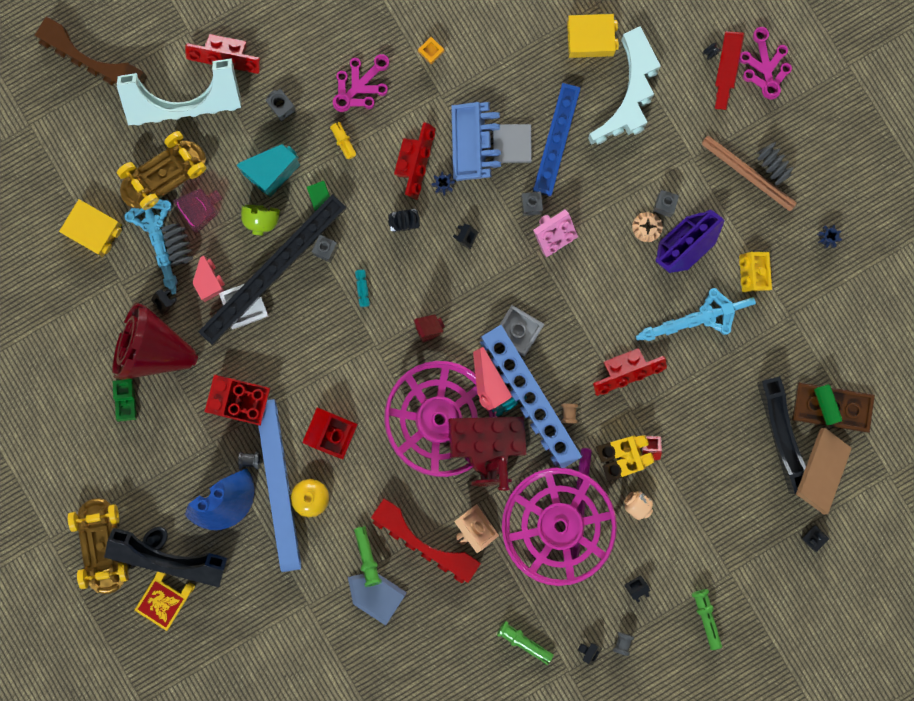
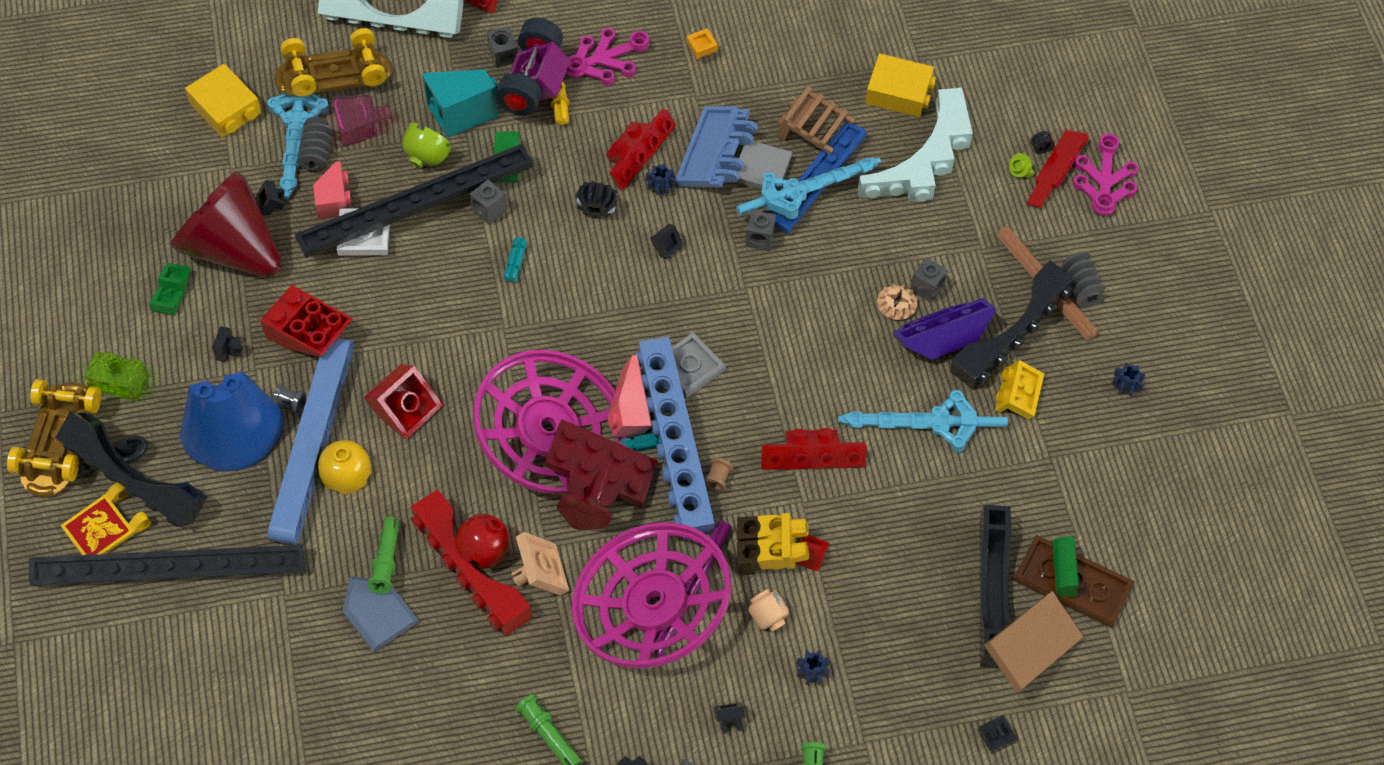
camera: 20 degrees right, 25 degrees down
(108, 487) = (125, 385): none -> clear neon green brick
(185, 433) = (226, 344): none -> black tile
(221, 615) = (166, 564): none -> black plate
(316, 124) = (536, 69): none -> brick
(429, 327) = (577, 316): dark red slope -> none
(429, 525) = (483, 540): none -> red cylinder
(527, 92) = (801, 111): none -> medium nougat plate
(547, 160) = (797, 191): none -> medium azure bar
(555, 232) = (775, 259): bright pink plate -> none
(684, 540) = (816, 660): none -> dark blue gear
(701, 77) = (1021, 165): none -> lime plate
(753, 187) = (979, 359): none -> black arch

